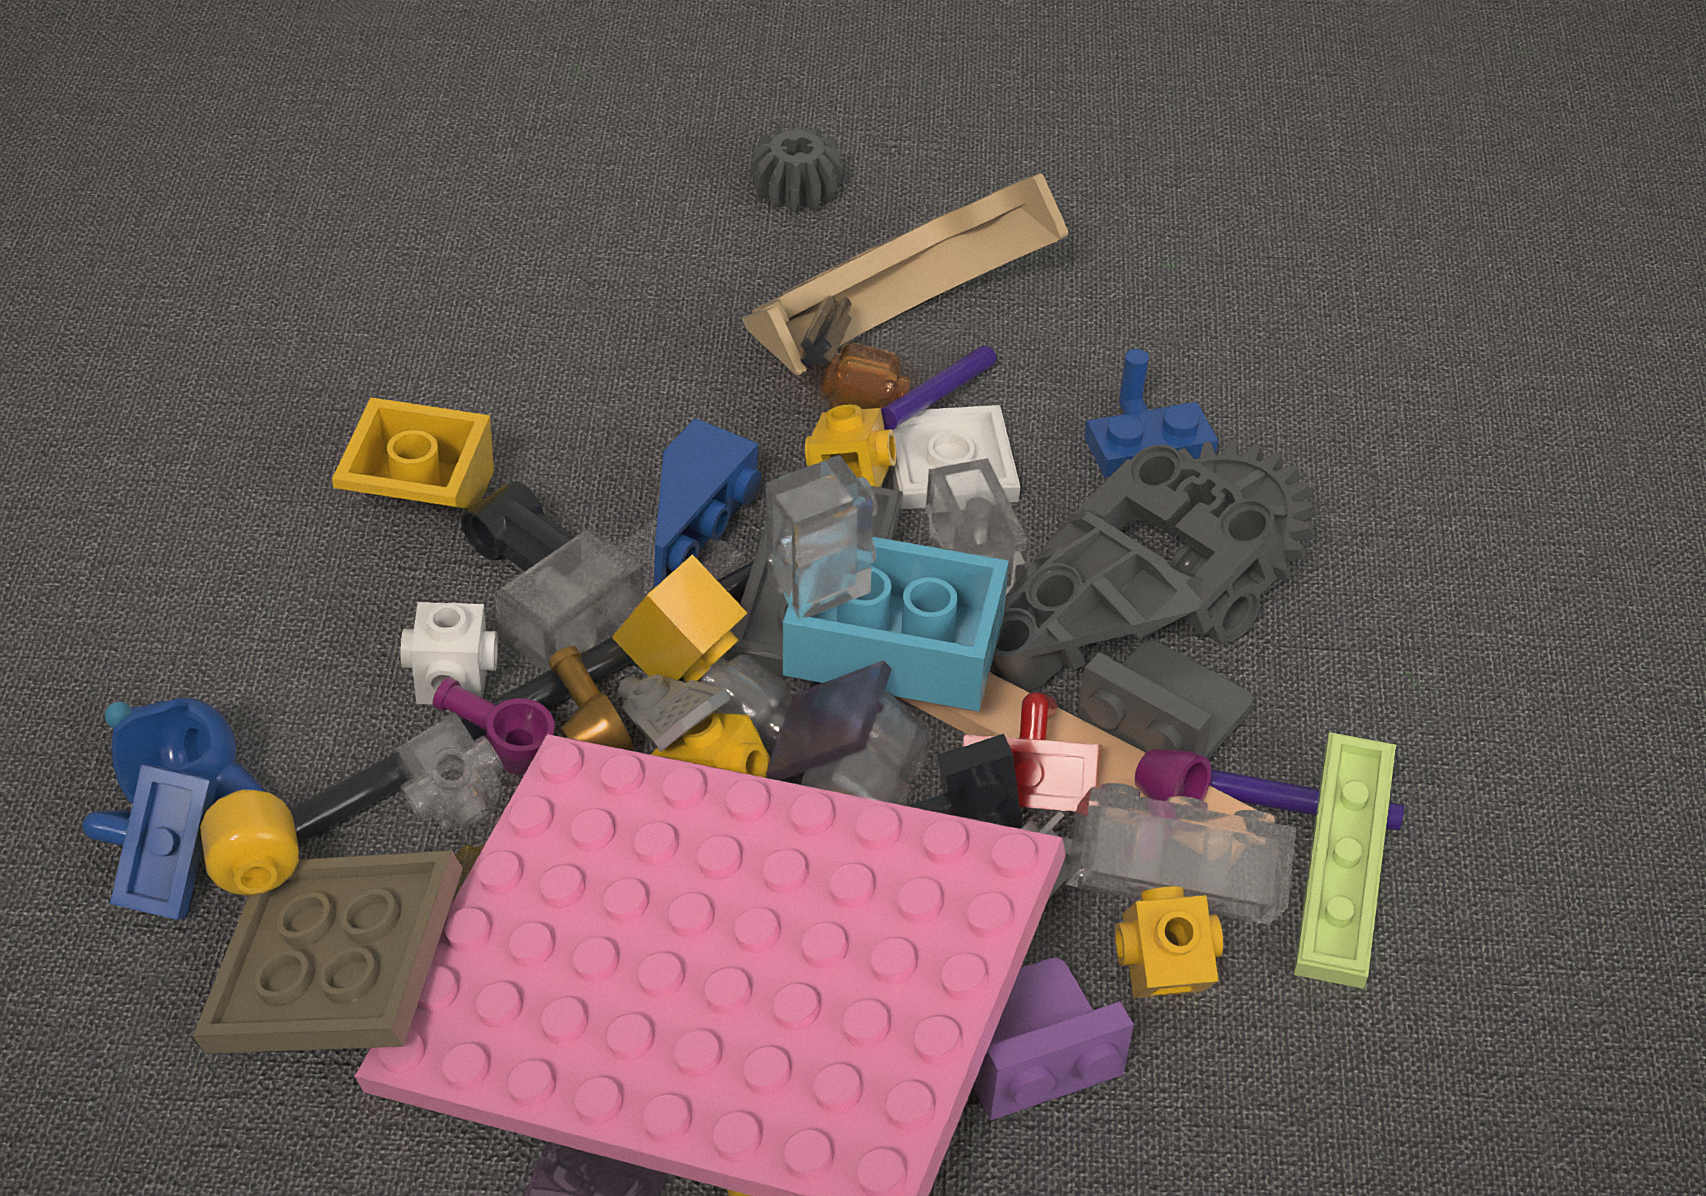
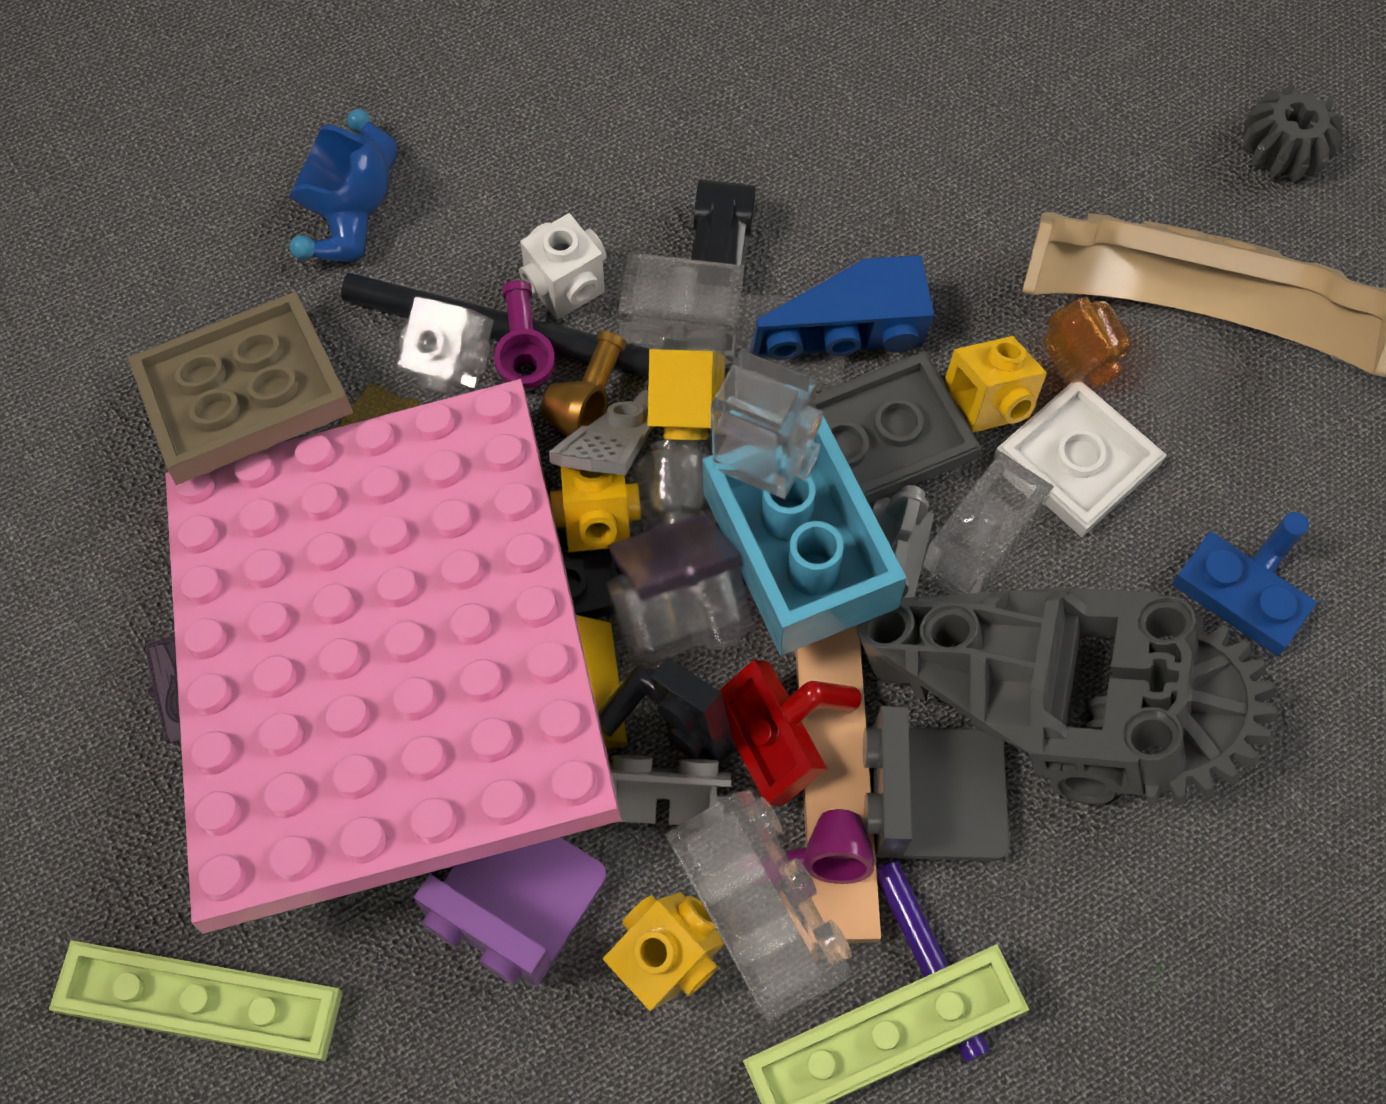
camera: 55 degrees right, 20 degrees up
(157, 840) = (257, 222): blue plate -> none
(246, 838) = (282, 271): yellow head -> none
(418, 454) = (713, 116): yellow slope -> none
(826, 332) = (1096, 278): black axle -> none
(937, 387) = (1137, 397): dark purple bar -> none

